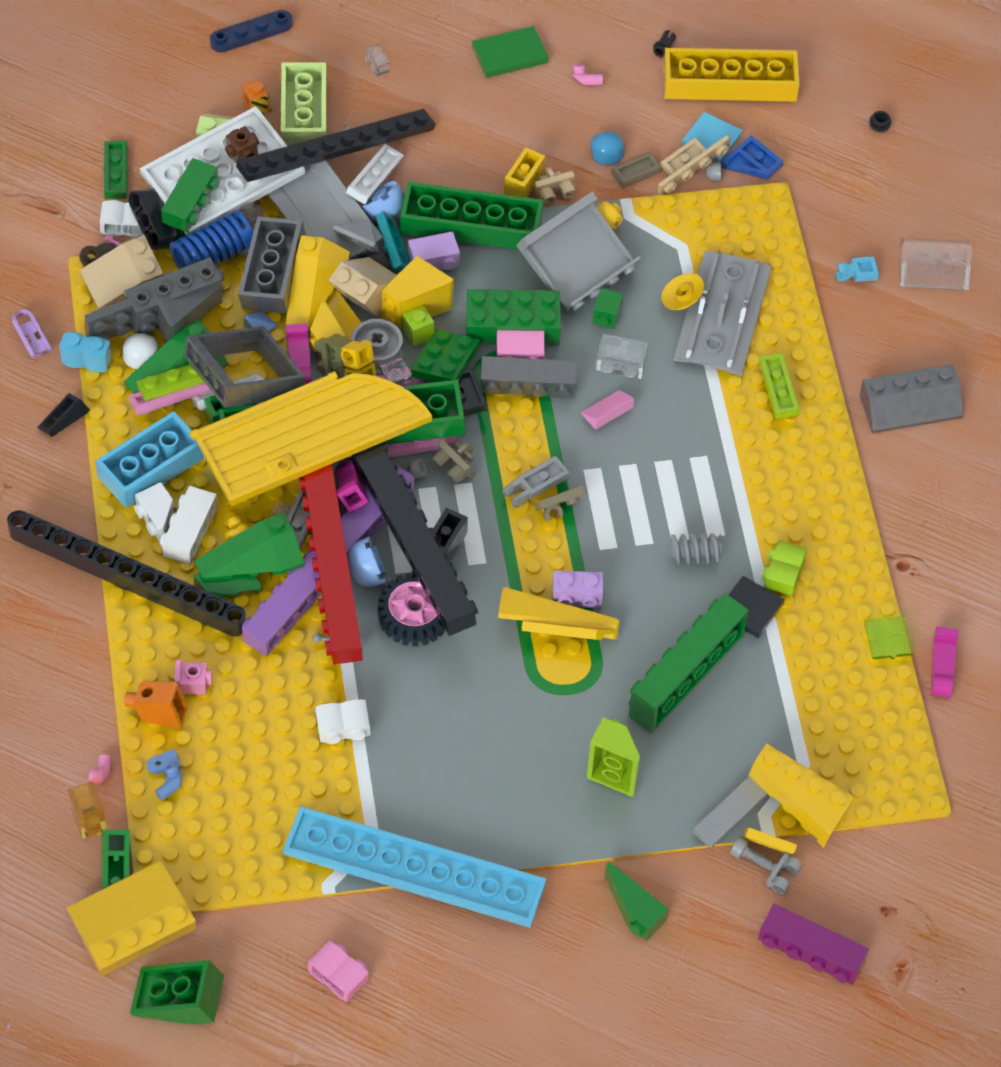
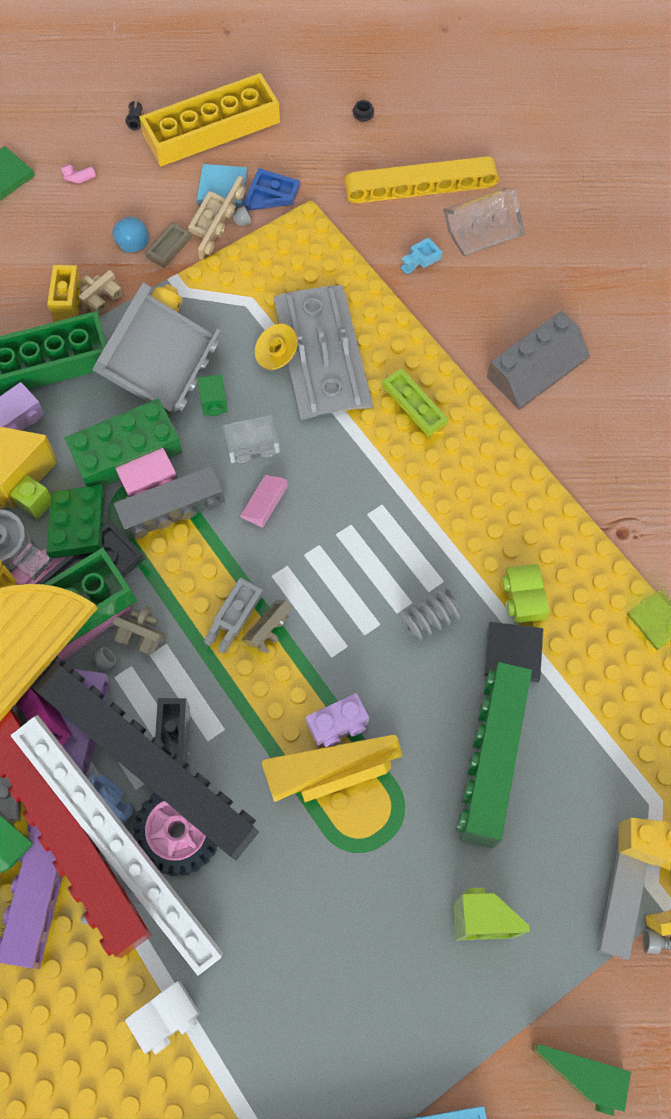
camera: 25 degrees left, 10 degrees up
(367, 589) = (117, 845): none -> white plate
(898, 204) = (421, 179): none -> yellow beam

